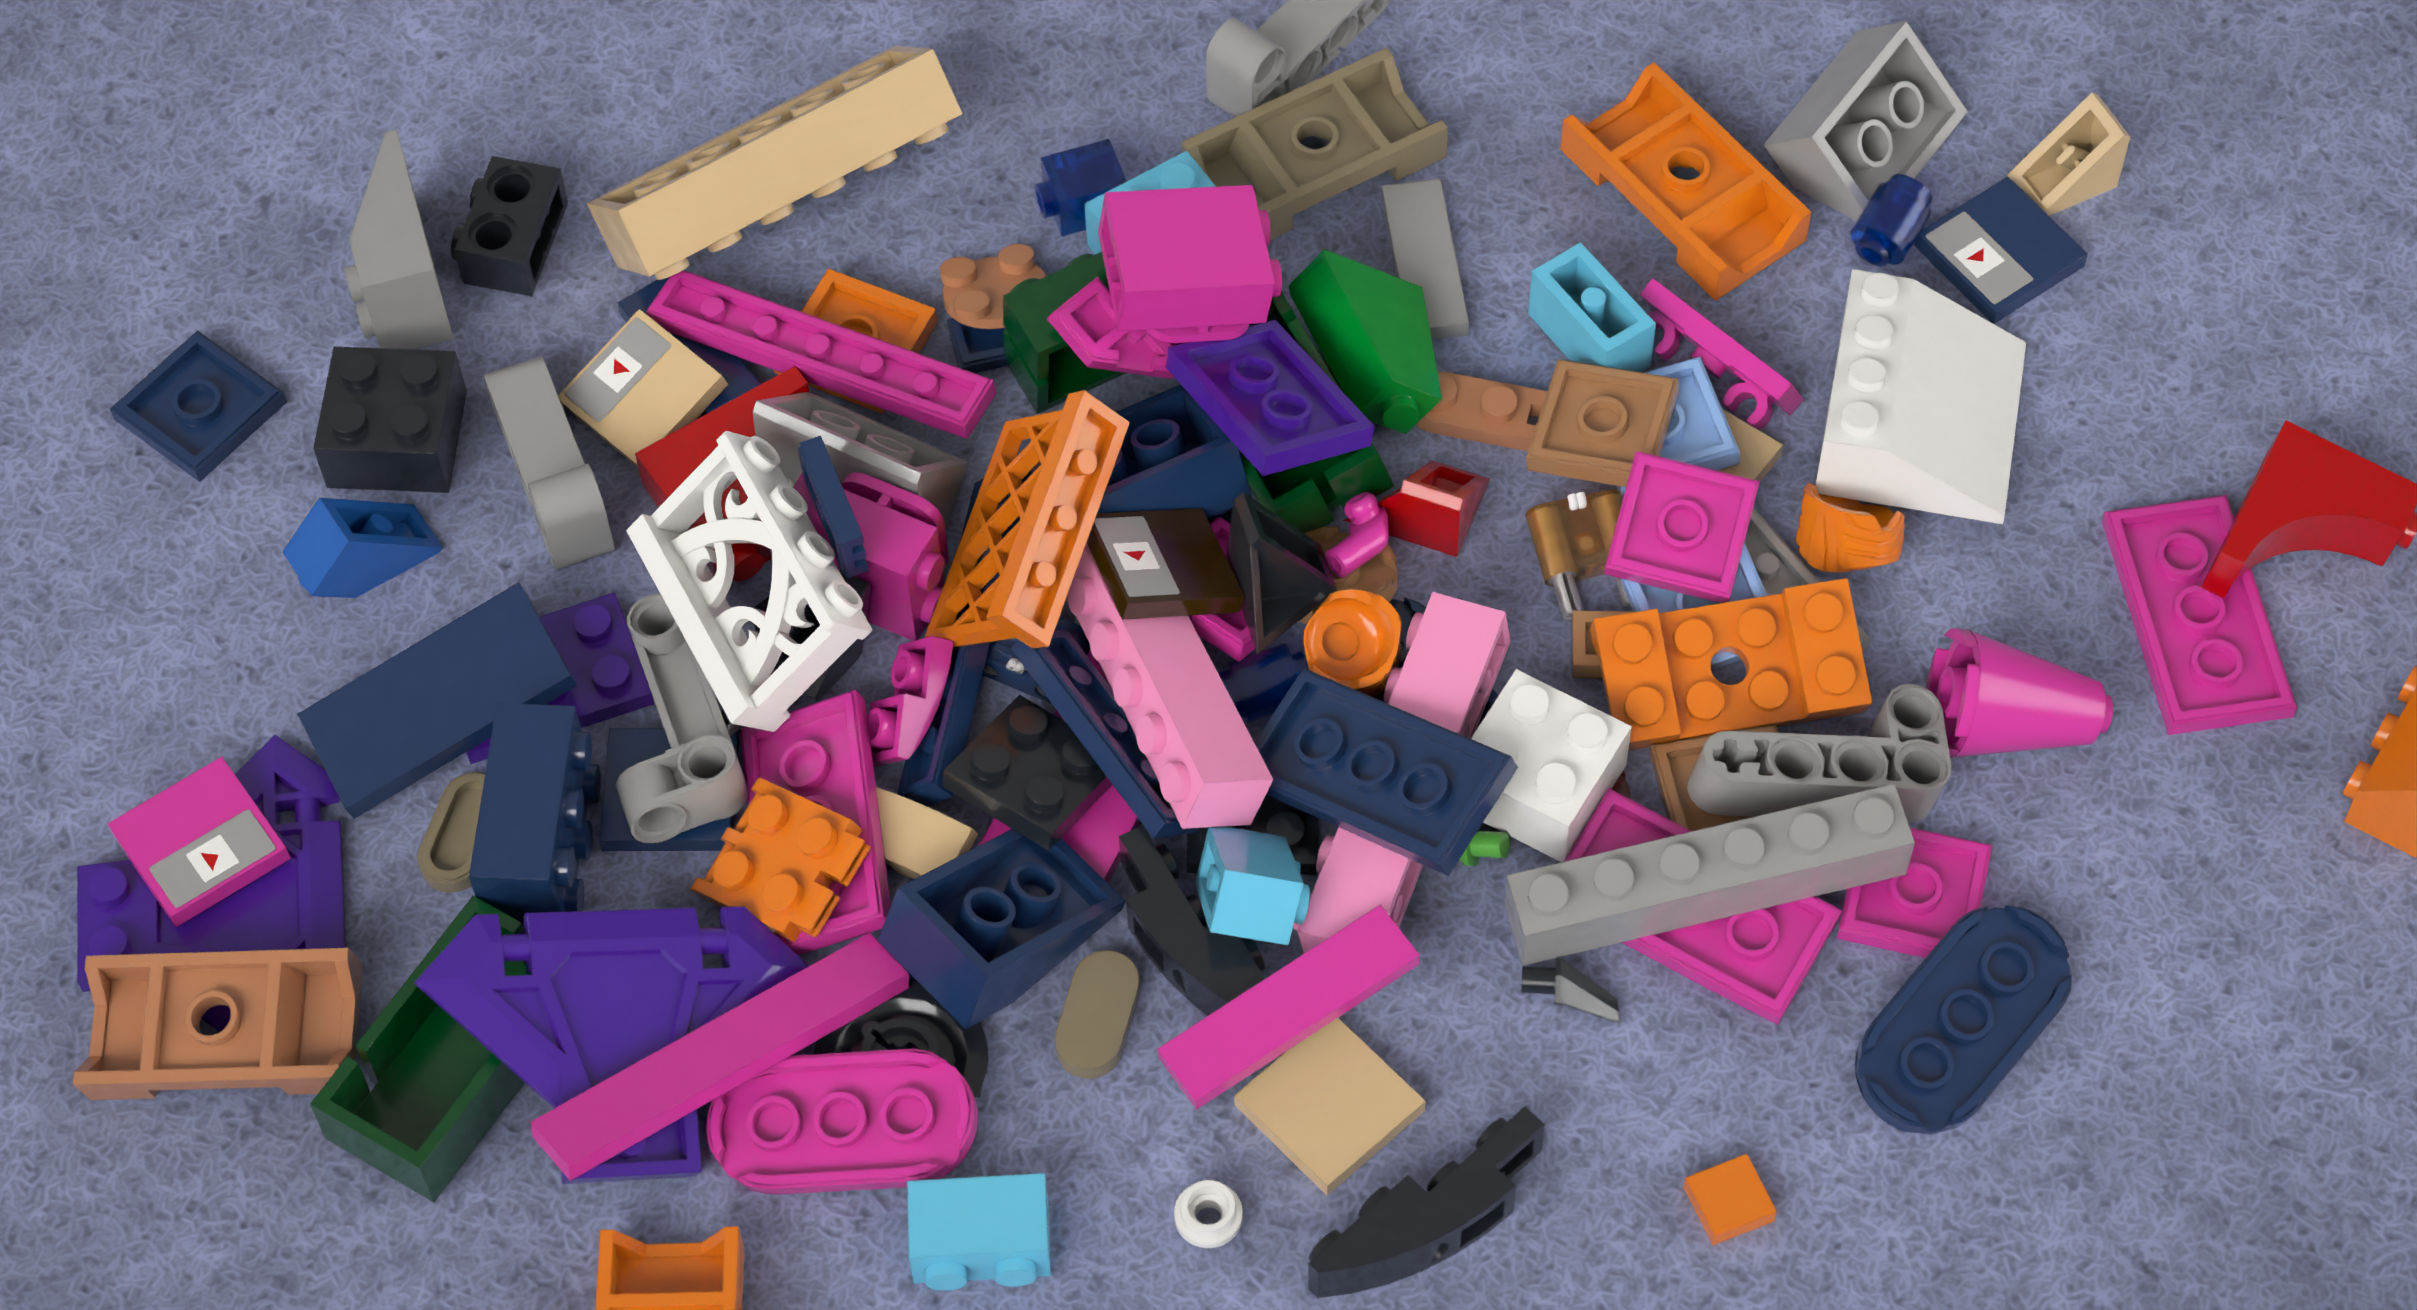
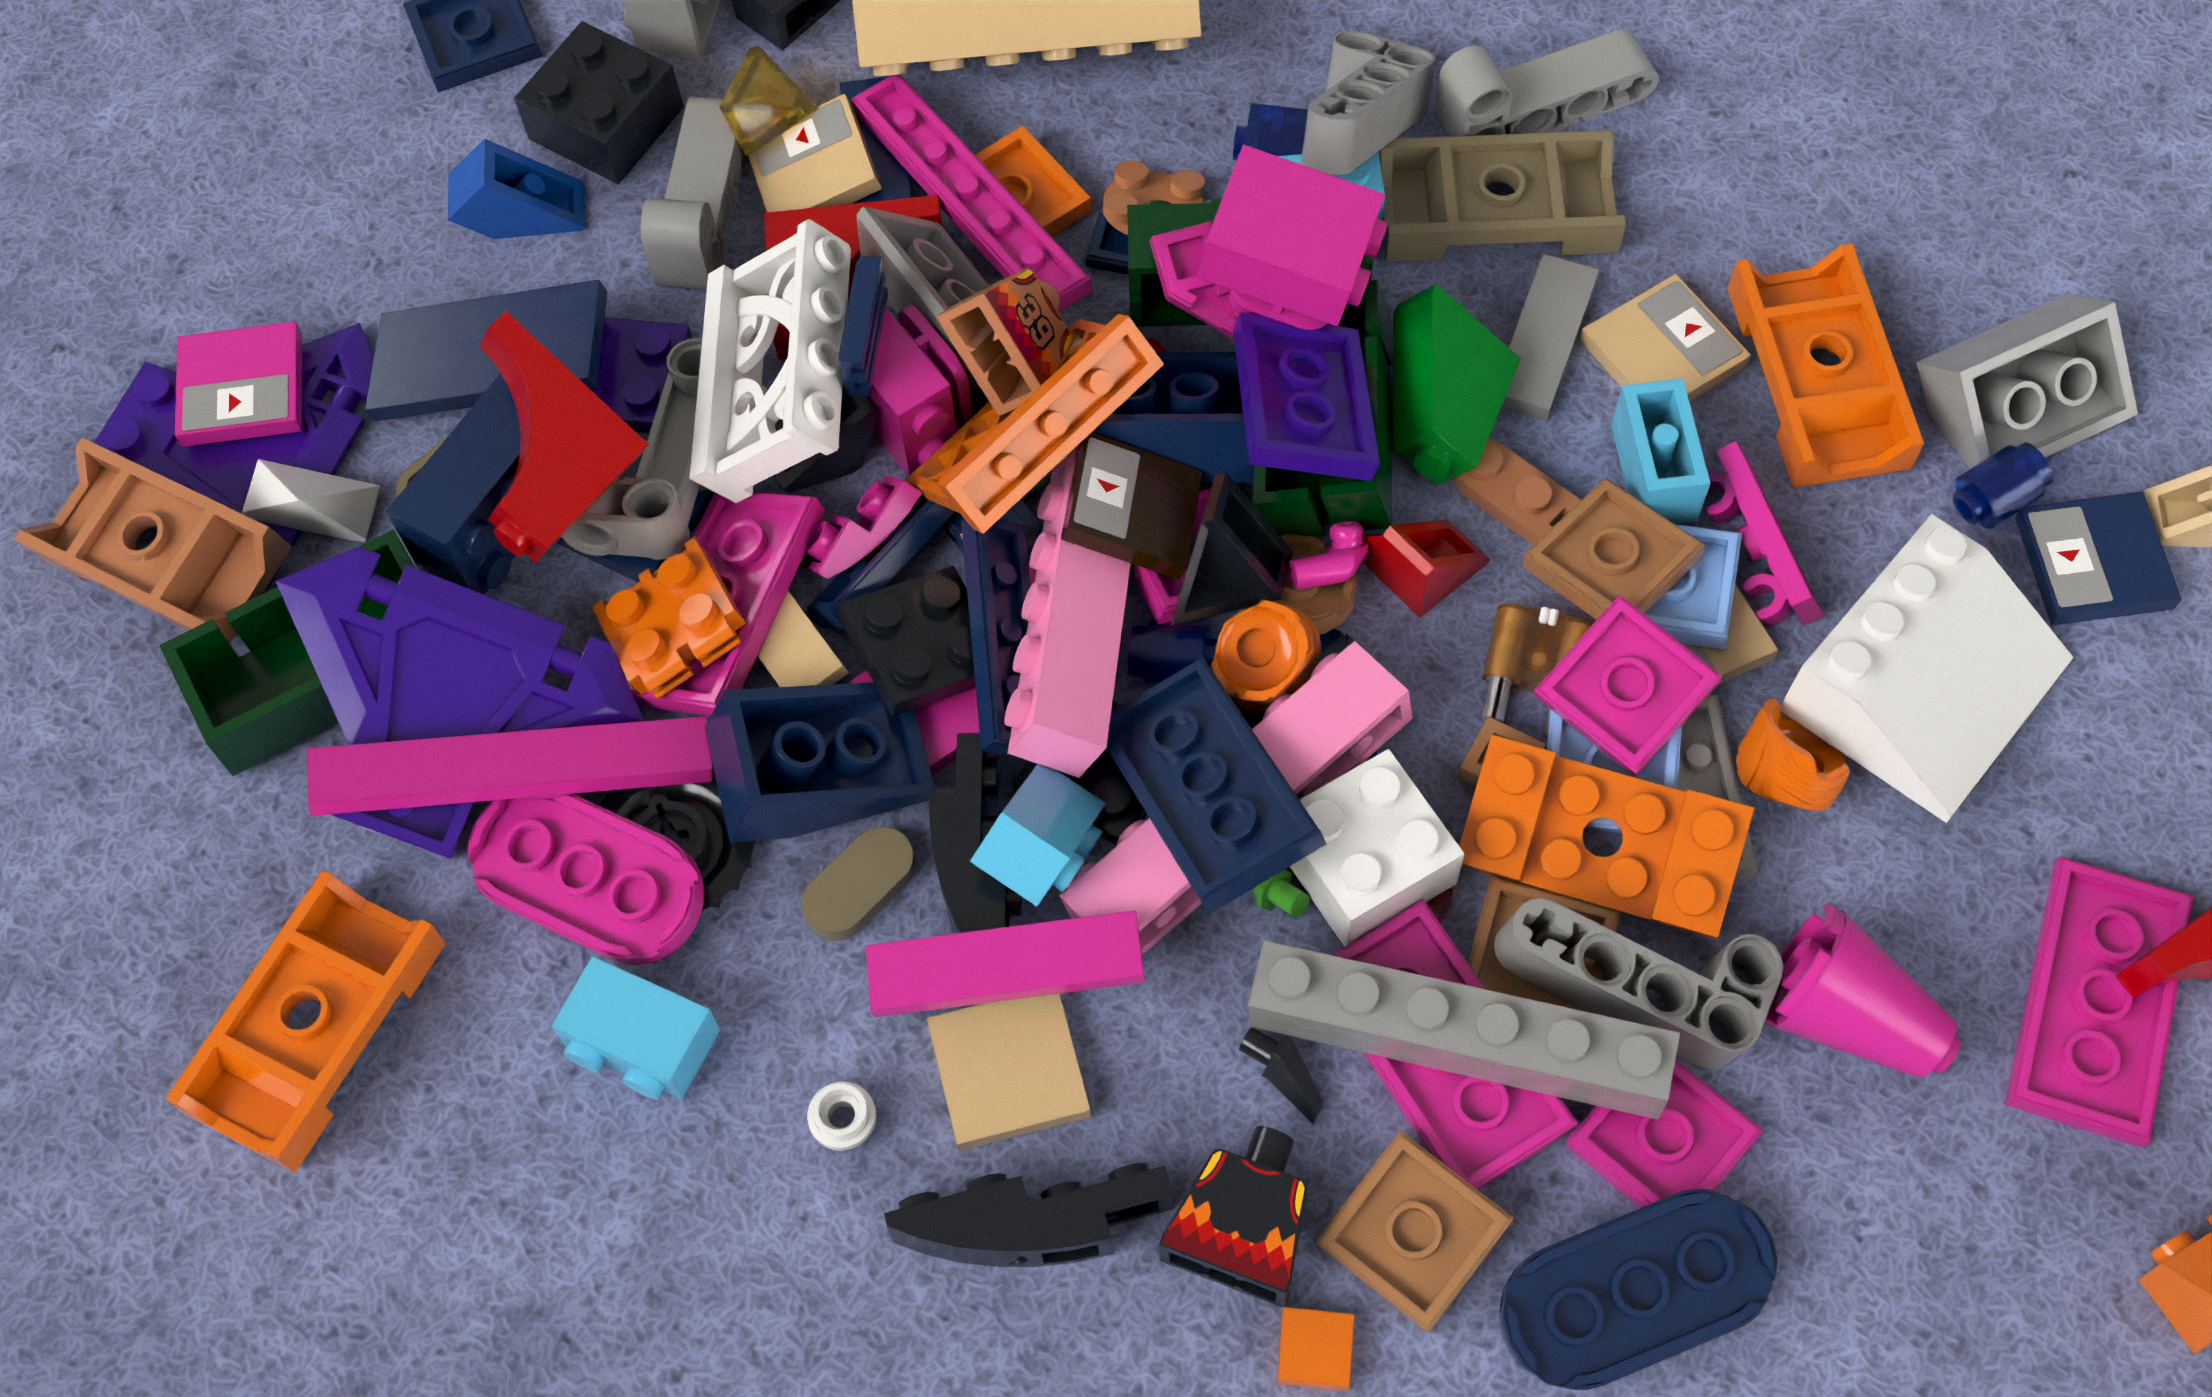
camera: 30 degrees right, 5 degrees up
(346, 916) = (311, 501): none -> white slope
(565, 348) = (763, 102): none -> clear yellow slope
(610, 734) = (568, 443): none -> red arch
(959, 454) = (1009, 337): none -> nougat torso
(1155, 99) = (1369, 100): none -> light grey beam
(1532, 219) = (1665, 337): none -> tan tile
(1614, 1125) = (1241, 1220): none -> torso
(1757, 1063) = (1415, 1231): none -> medium nougat tile

